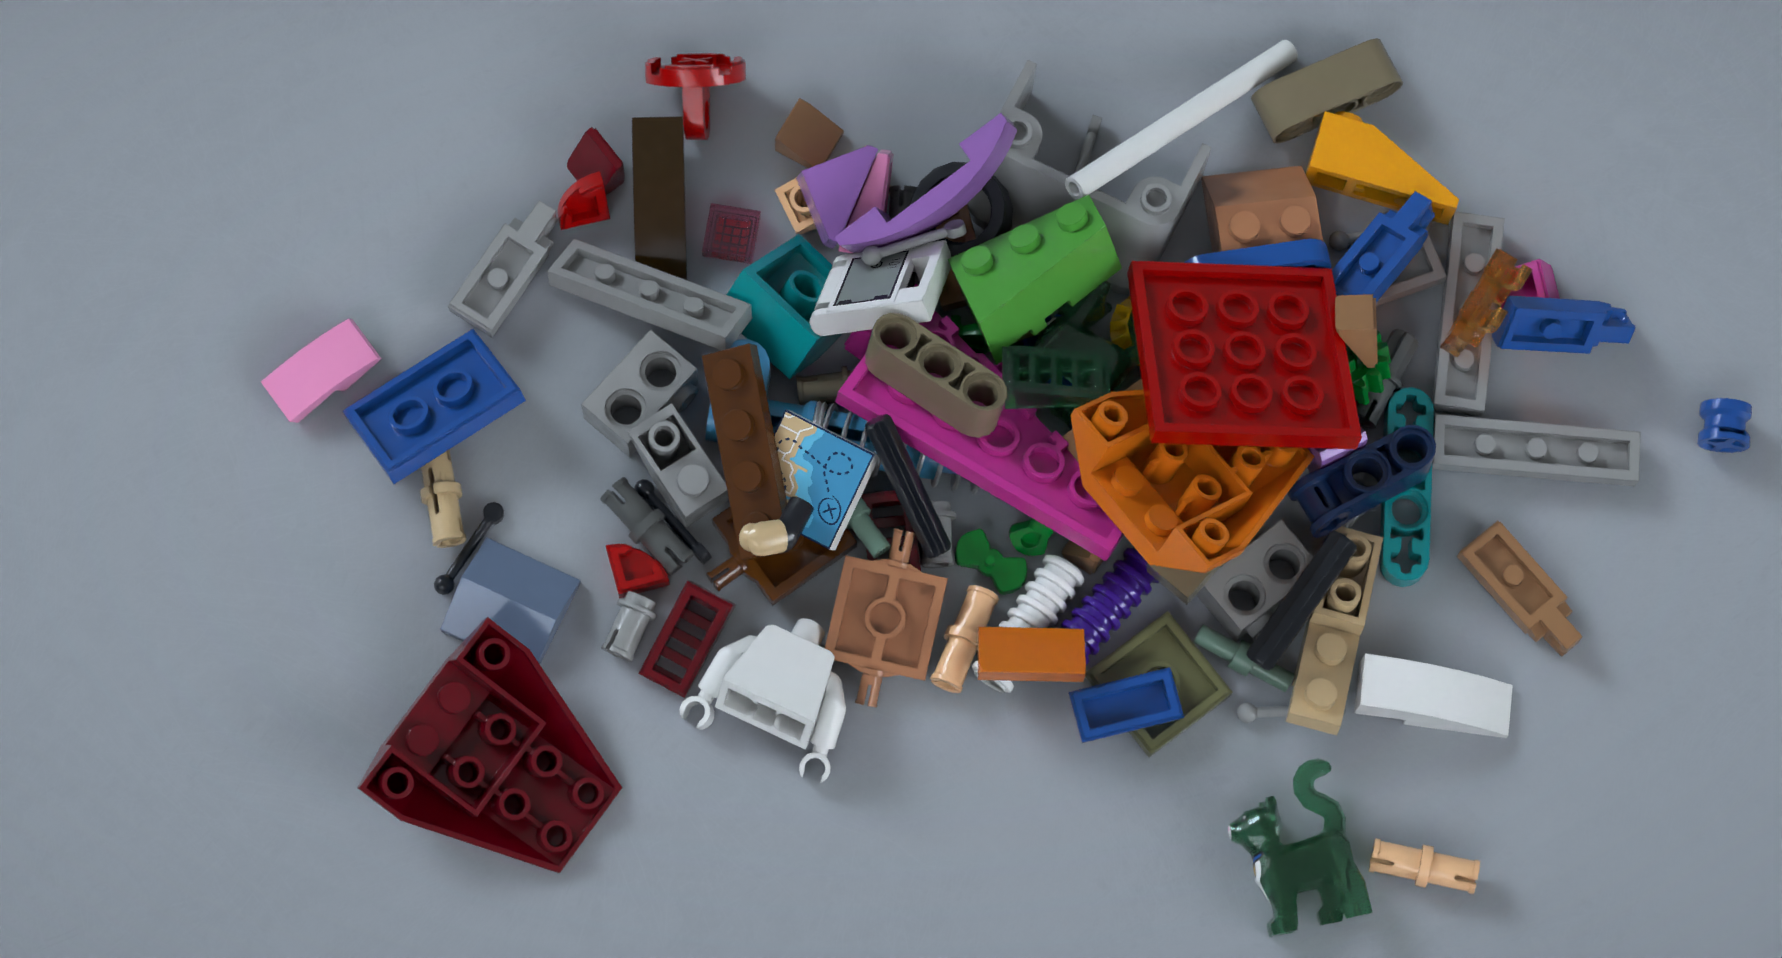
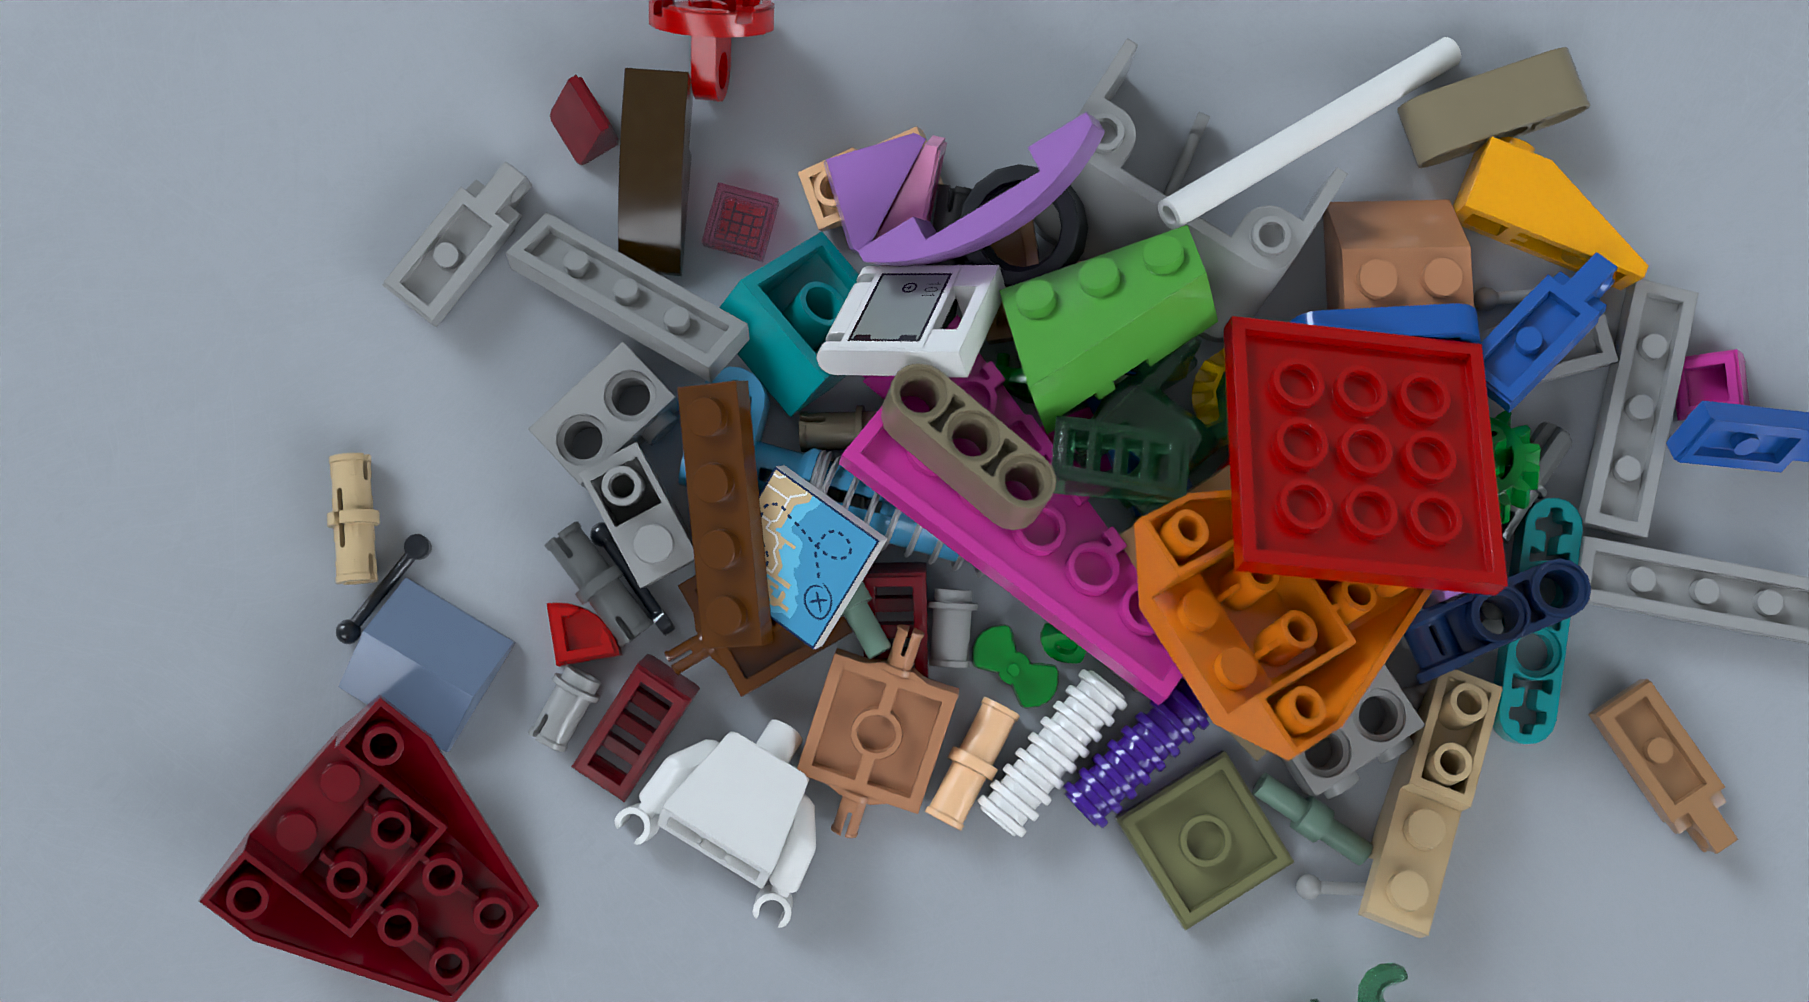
camera: 10 degrees right, 10 degrees up
(319, 369) = (222, 348): bright pink slope -> none
(433, 406) = (351, 411): blue tile -> none
(583, 203) = (563, 168): red tile -> none
(777, 535) = (747, 633): arm -> none
(807, 135) = (845, 107): medium nougat slope -> none
(908, 486) = (918, 578): black axle -> none
(953, 229) = (1009, 252): light grey hinge -> none
(1031, 654) = (1052, 804): orange slope -> none
(1126, 705) = (1162, 872): blue tile -> none
(1301, 600) = (1397, 767): black axle -> none
(1358, 325) = (1512, 425): medium nougat slope -> none
(1432, 696) = (1539, 894): white slope -> none
(1475, 317) = (1677, 385): clear orange plate -> none

